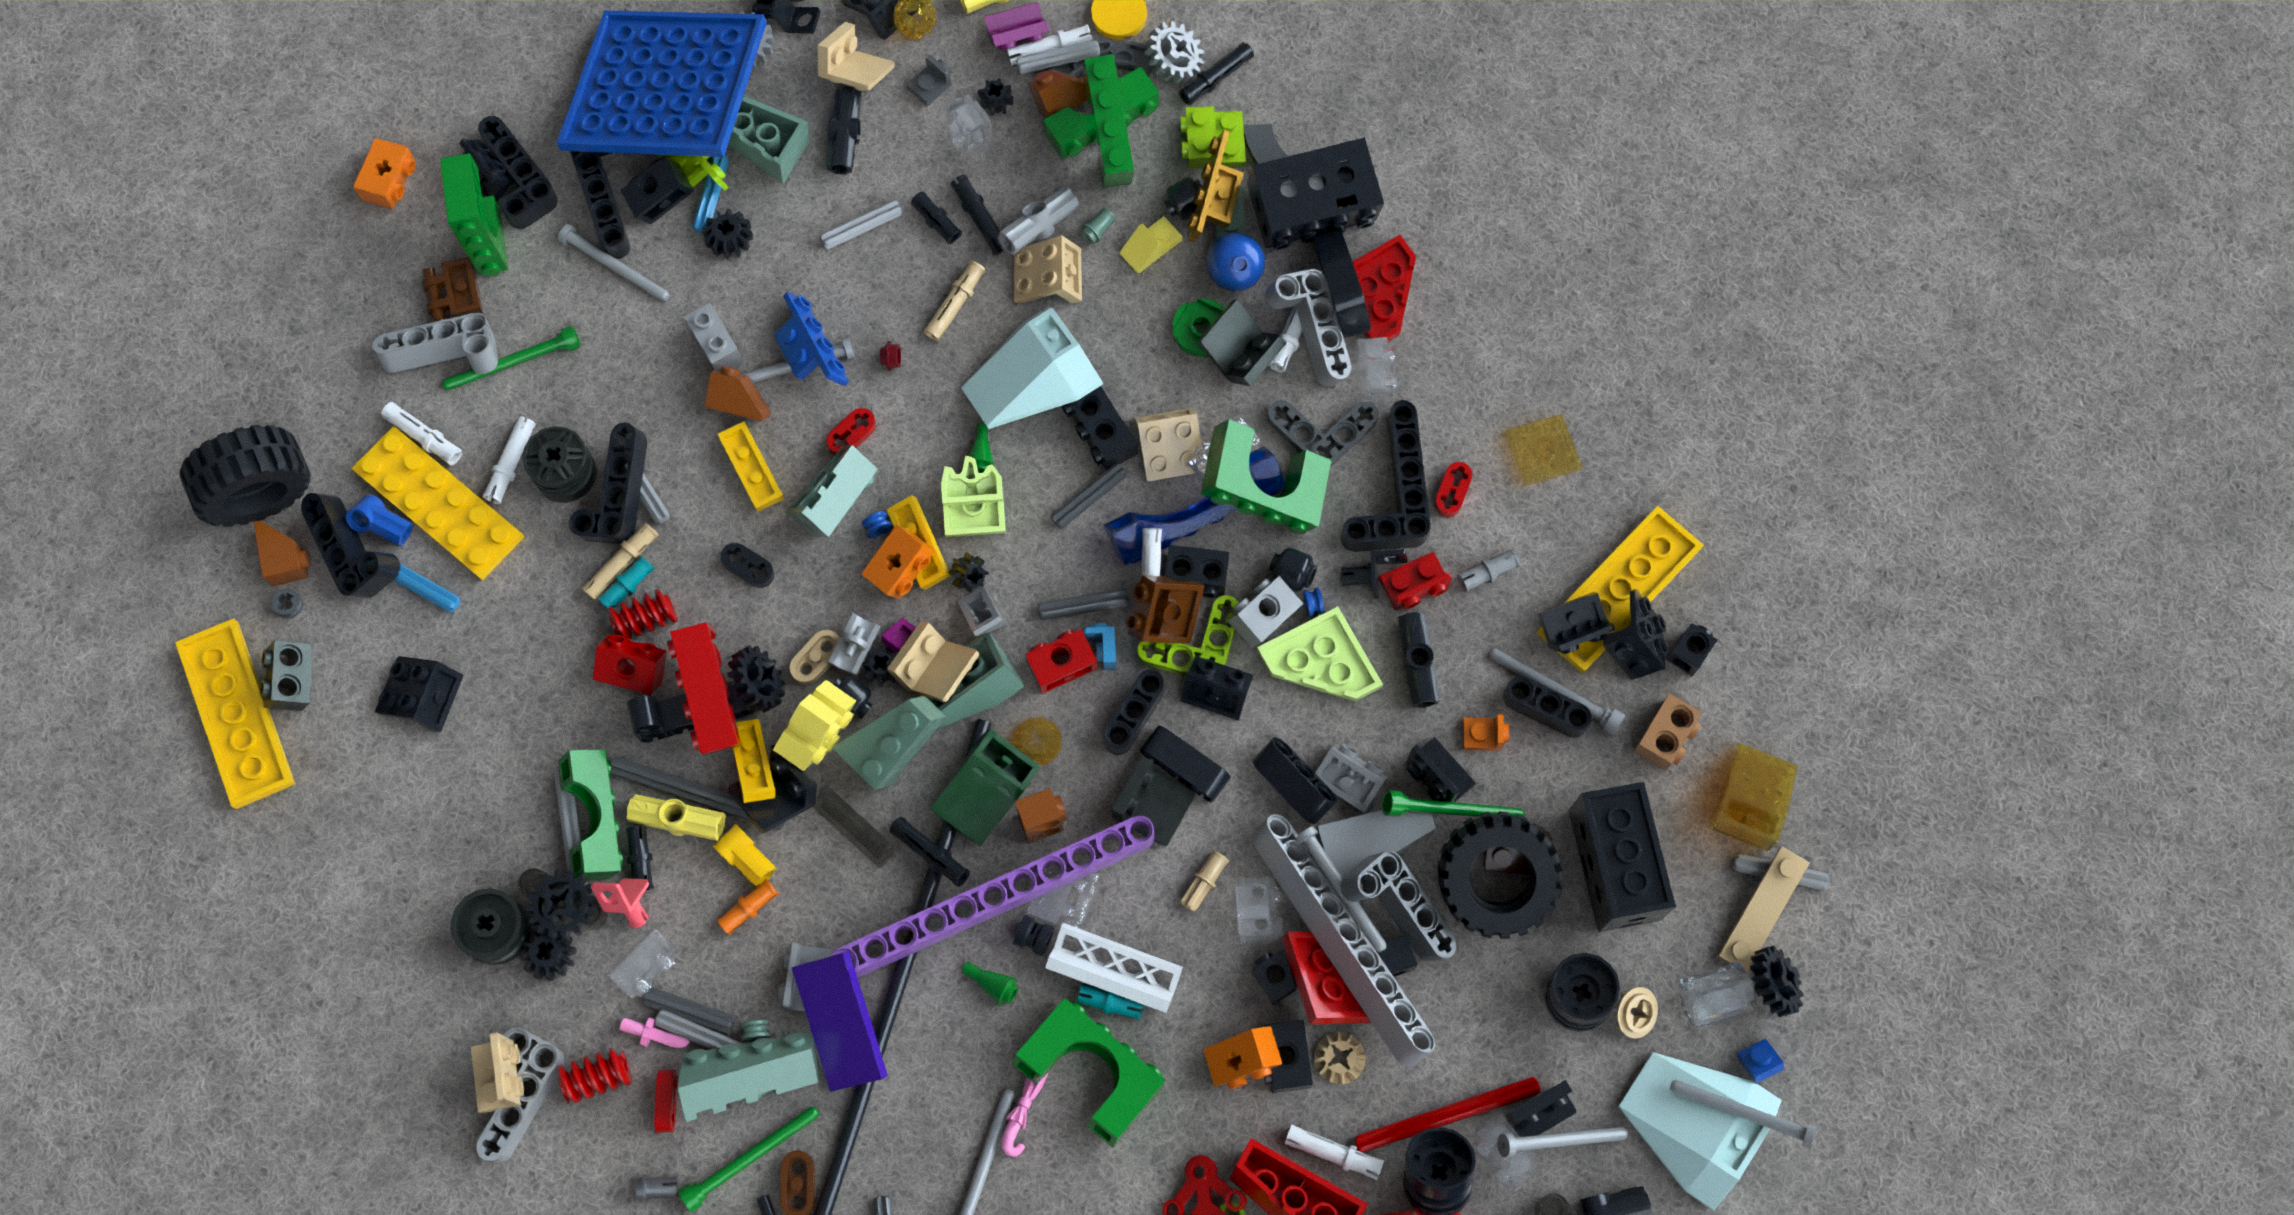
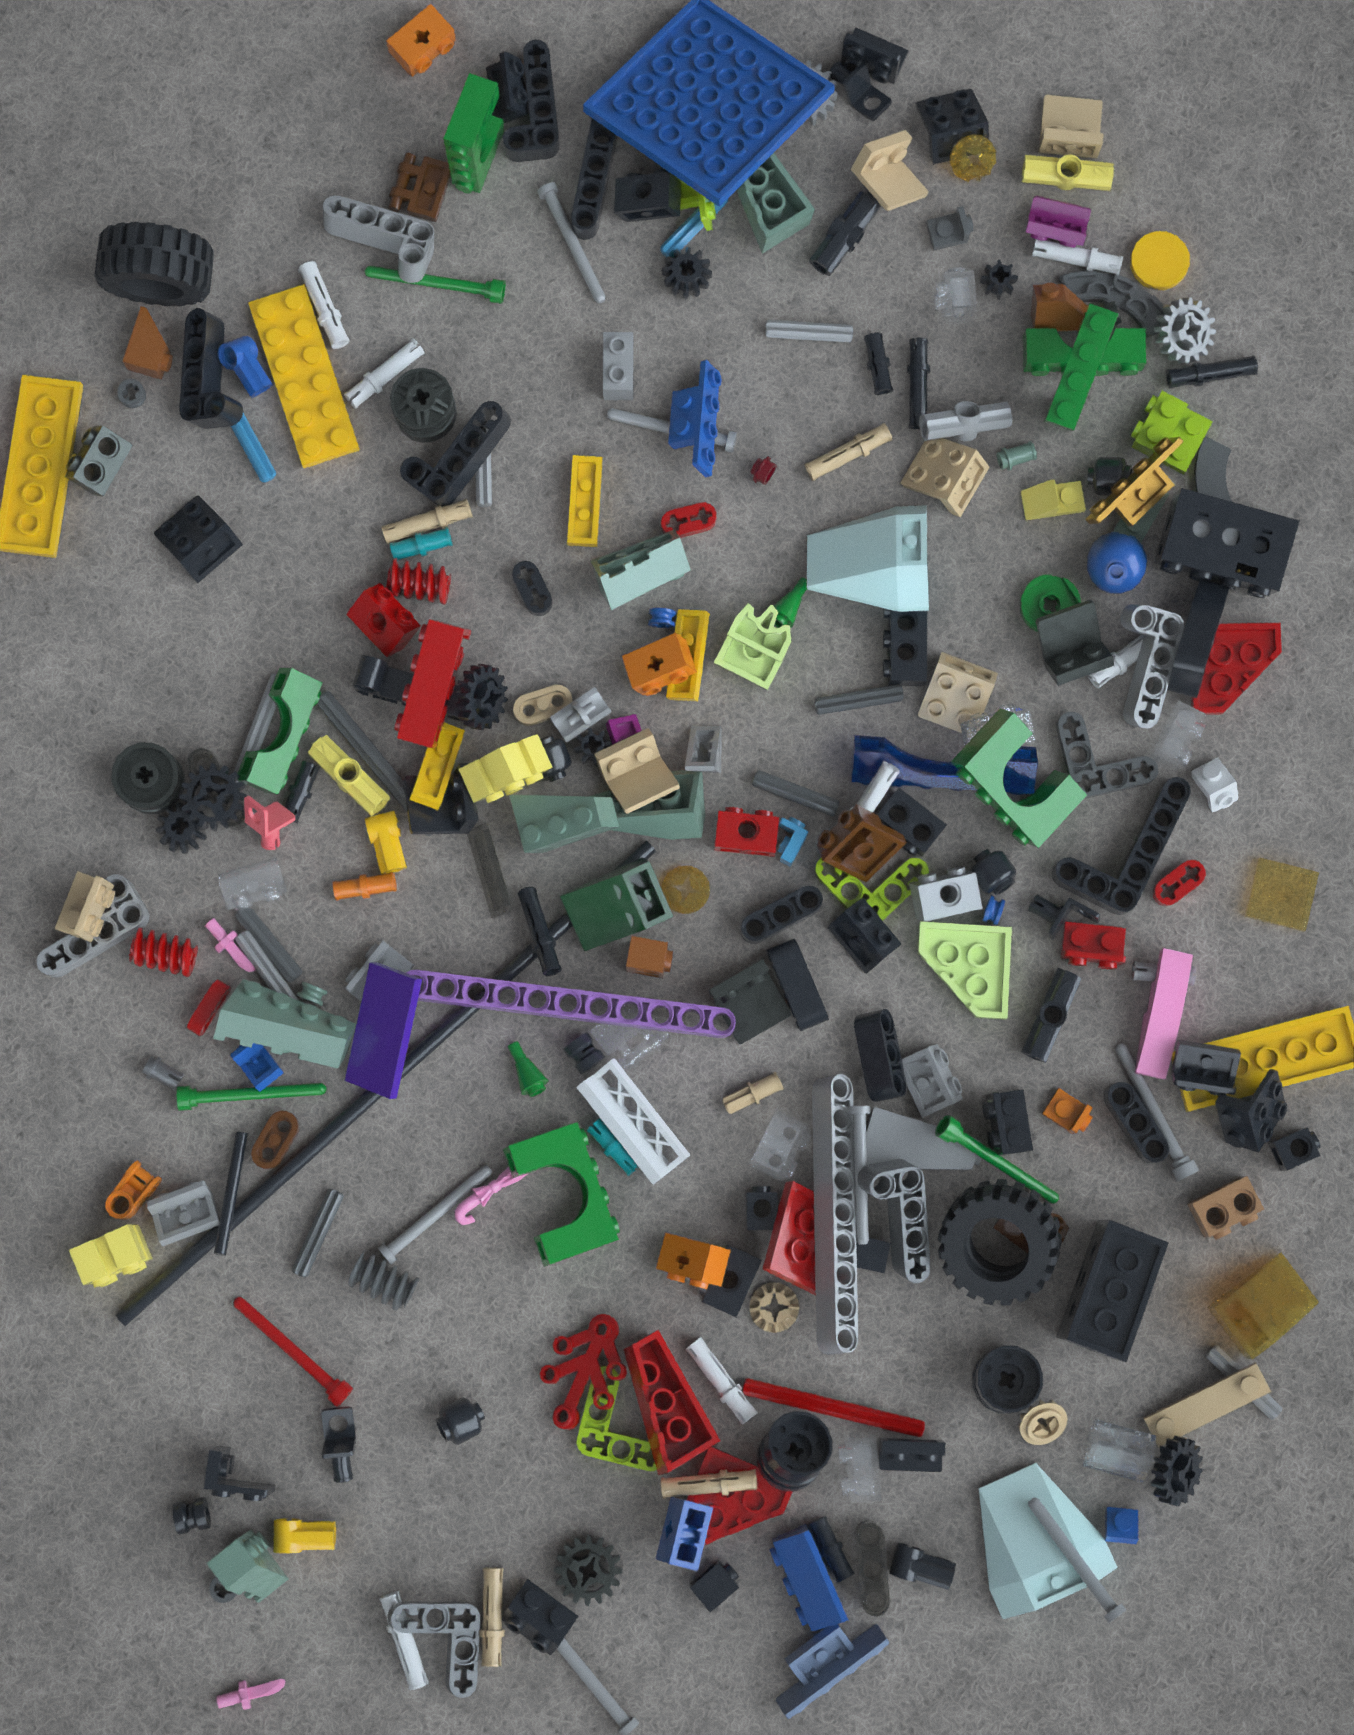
camera: 30 degrees right, 10 degrees up
(735, 394) = (608, 429): dark orange slope -> none
(740, 1125) = (257, 1065): none -> blue bracket
(968, 572) = (714, 707): black gear -> none
(1058, 56) = (1078, 273): light grey axle -> none
(1432, 391) = (1216, 784): none -> white bracket
(1508, 1144) = (863, 1466): light grey bar -> none
(1512, 602) = (1163, 1014): none -> bright pink slope

